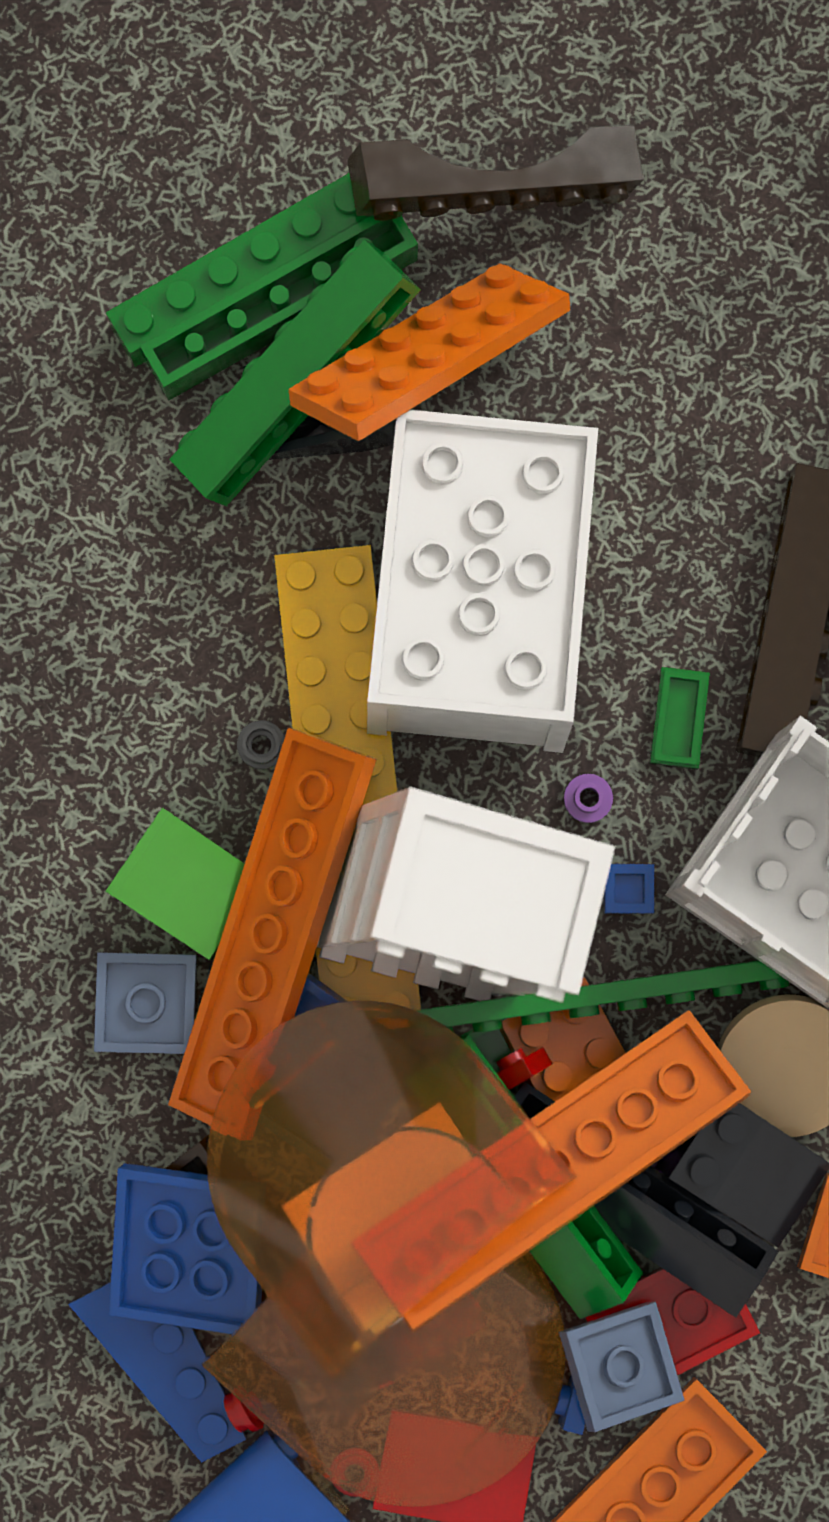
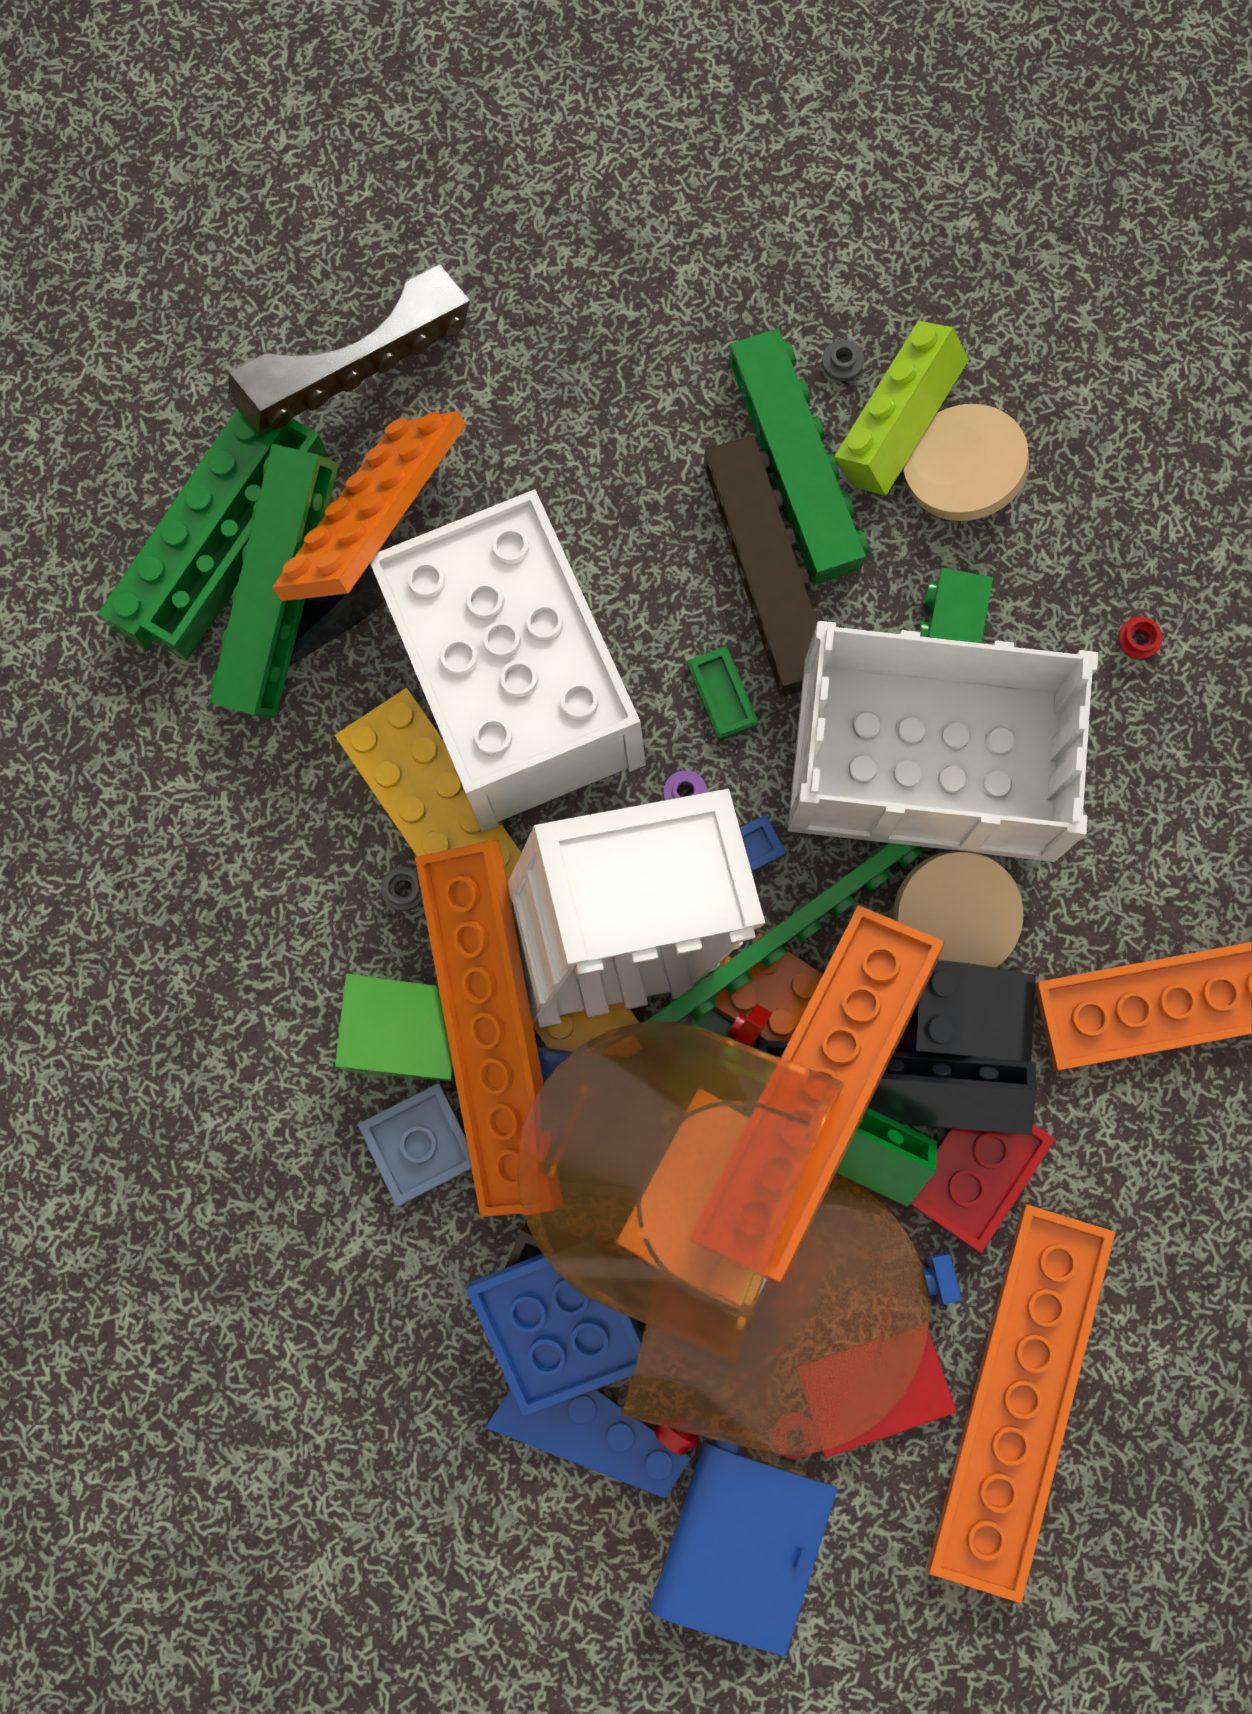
camera: 20 degrees left, 5 degrees down
(621, 1366) = (962, 1226): sand blue plate -> none

